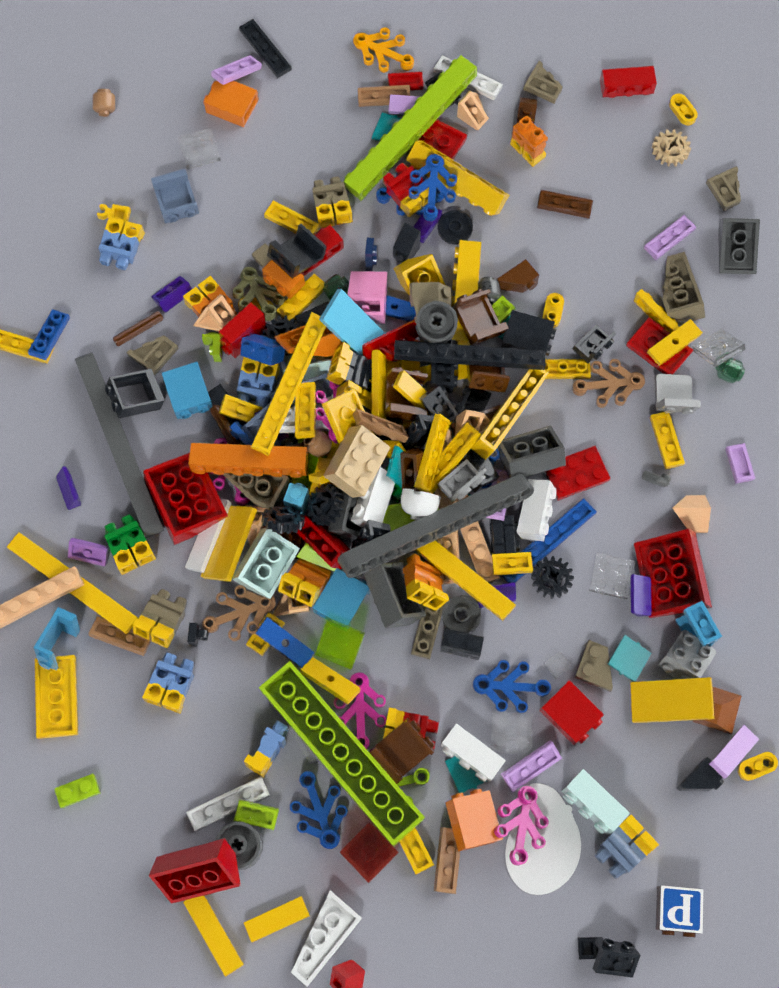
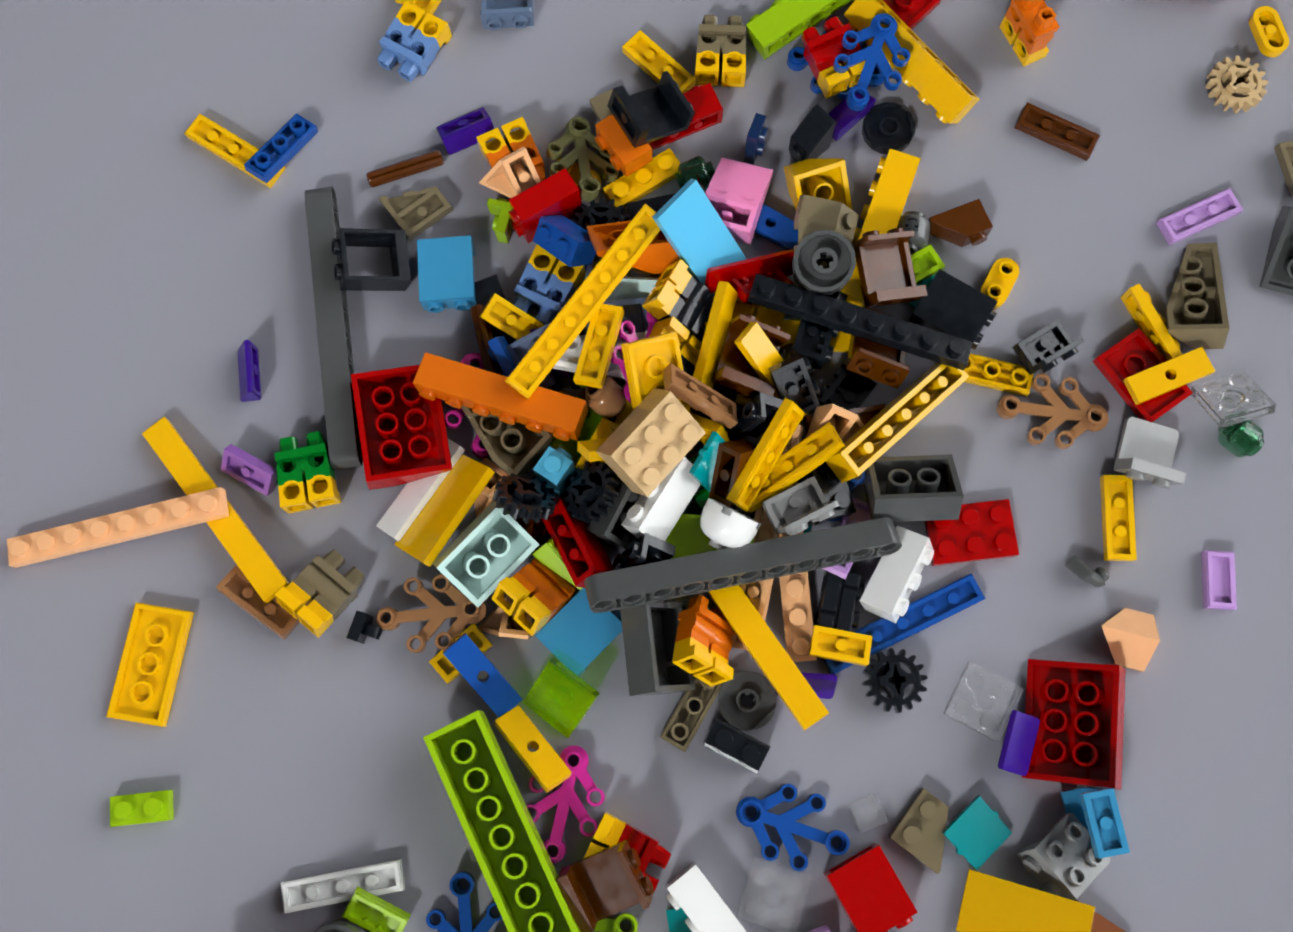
camera: 20 degrees right, 5 degrees up
(60, 621) = (160, 579): dark azure panel -> none
(169, 683) = (308, 690): medium blue hips -> none
(268, 749) = (415, 828): medium blue hips -> none

